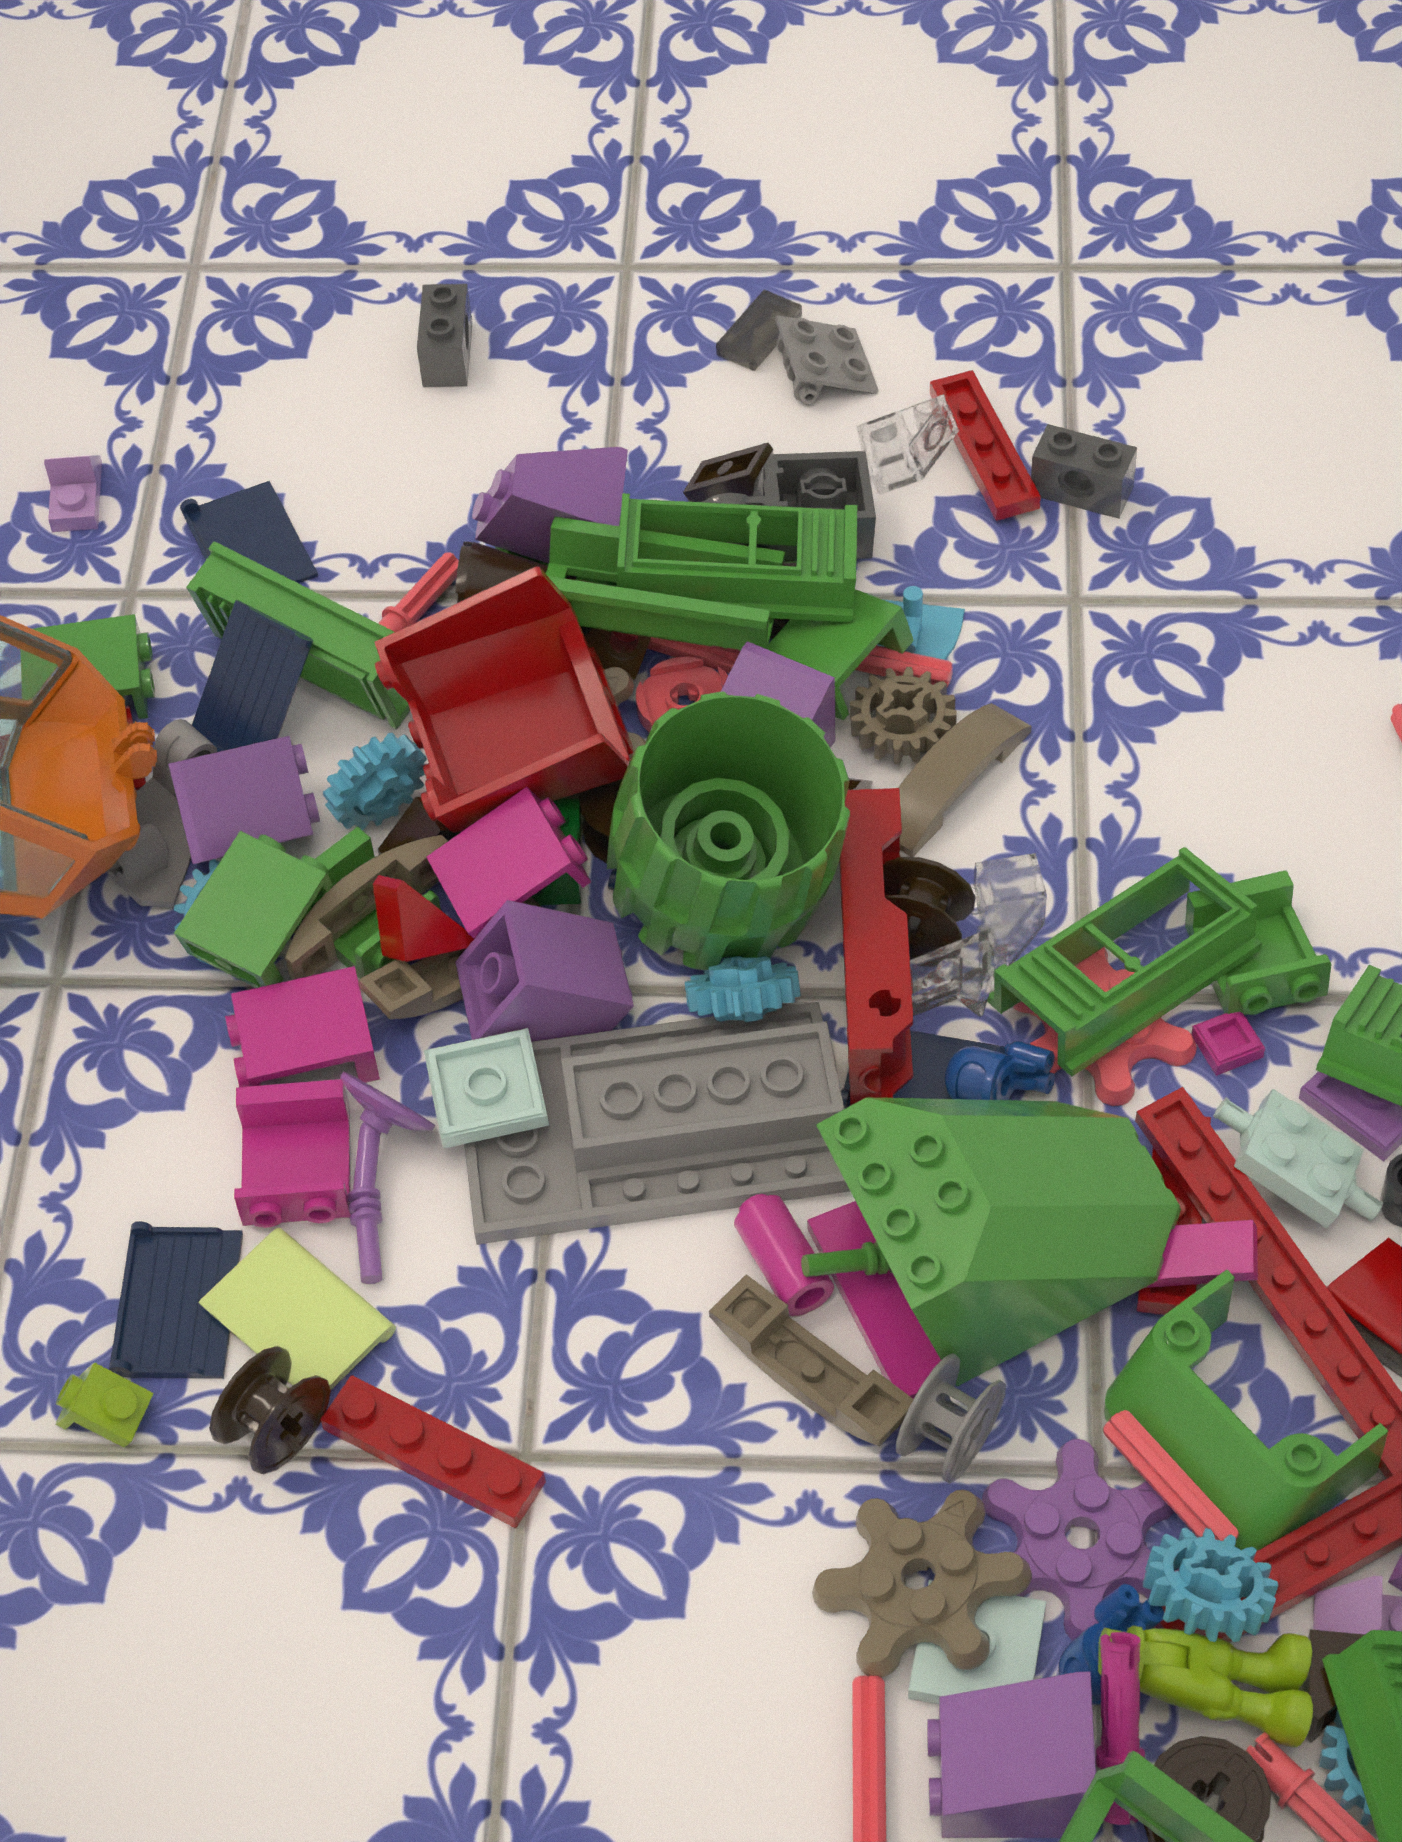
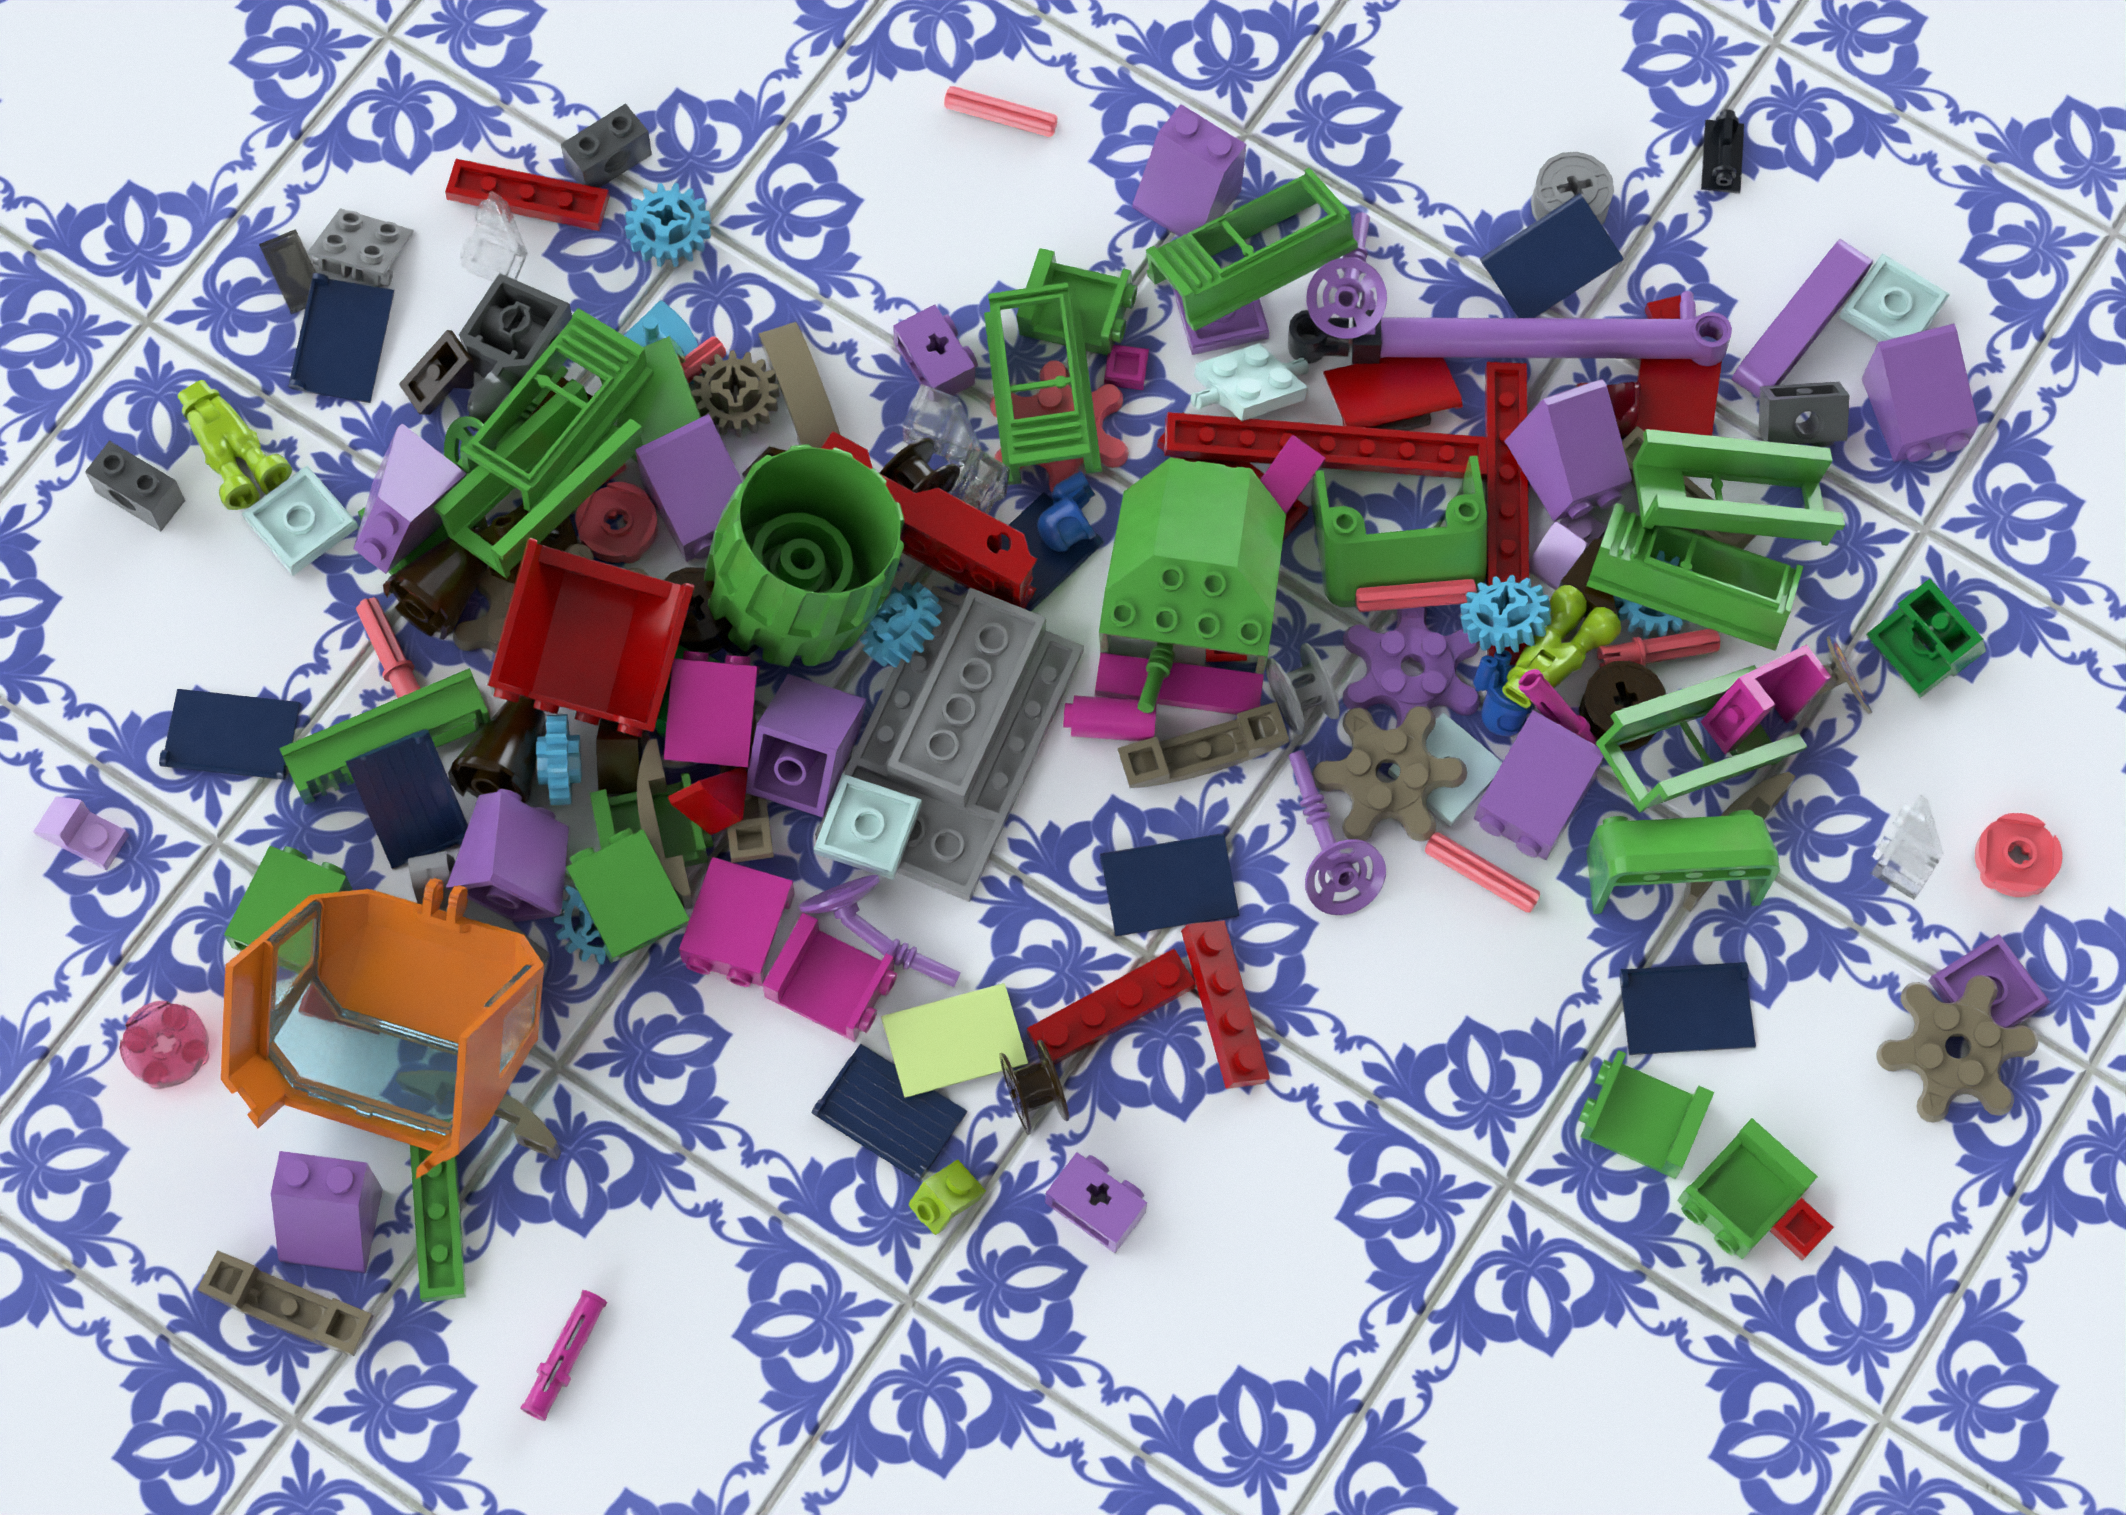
camera: 65 degrees left, 15 degrees up
(176, 1560) = (1106, 1222): none -> medium lavender brick
(335, 726) = (501, 753): none -> dark brown cone
(487, 451) = (300, 520): none -> light aqua plate
(506, 1565) = (1225, 1004): none -> red plate
(535, 382) = (223, 439): none -> lime piece
(625, 1429) = (1169, 884): none -> dark blue piece
(716, 397) = (341, 339): none -> dark blue piece
(774, 1584) = (1330, 859): none -> medium lavender dish
(1041, 563) = (670, 227): none -> medium azure gear
(1090, 854) = (934, 352): none -> medium lavender brick

